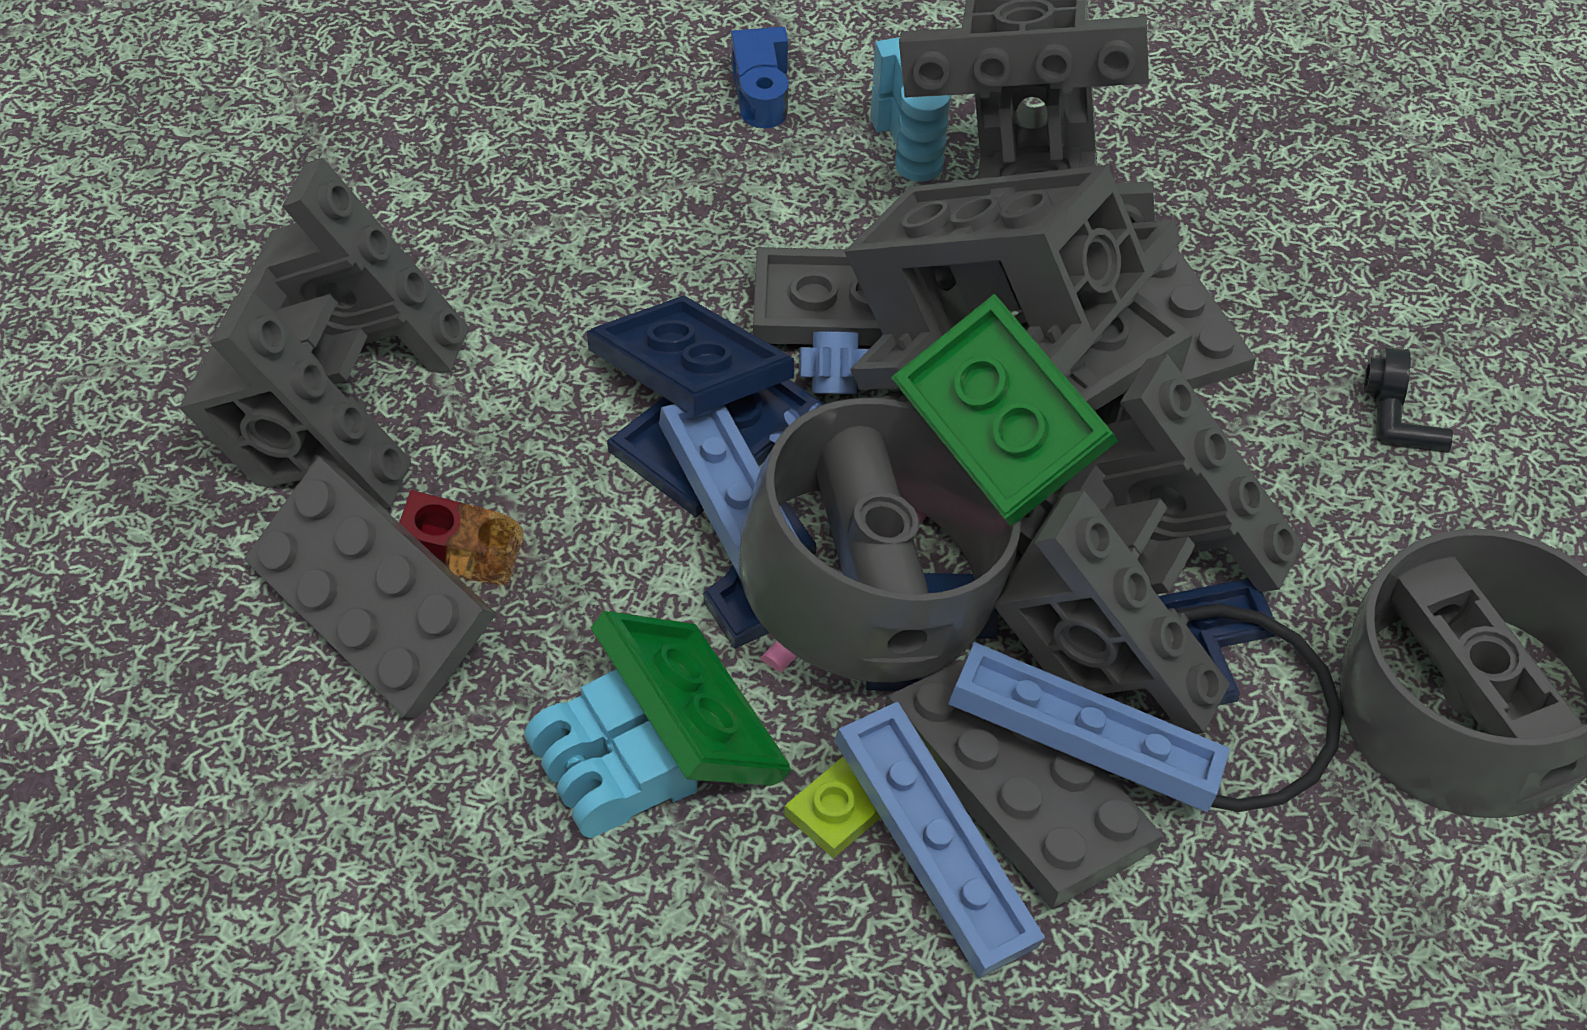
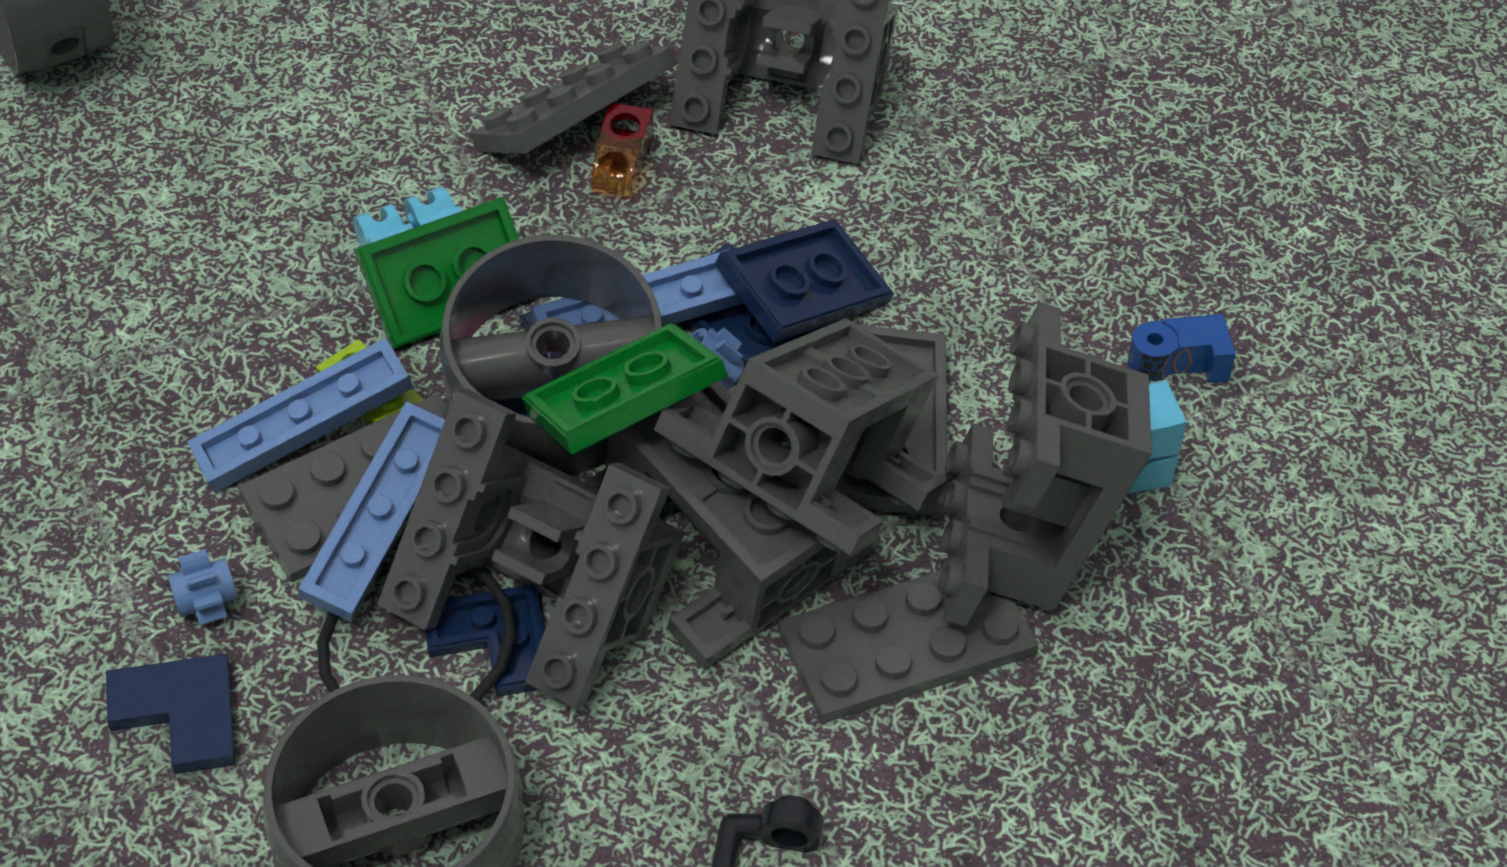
camera: 90 degrees right, 0 degrees up
(1209, 916) = (202, 587): none -> medium blue gear
(1345, 928) = (186, 694): none -> dark blue tile

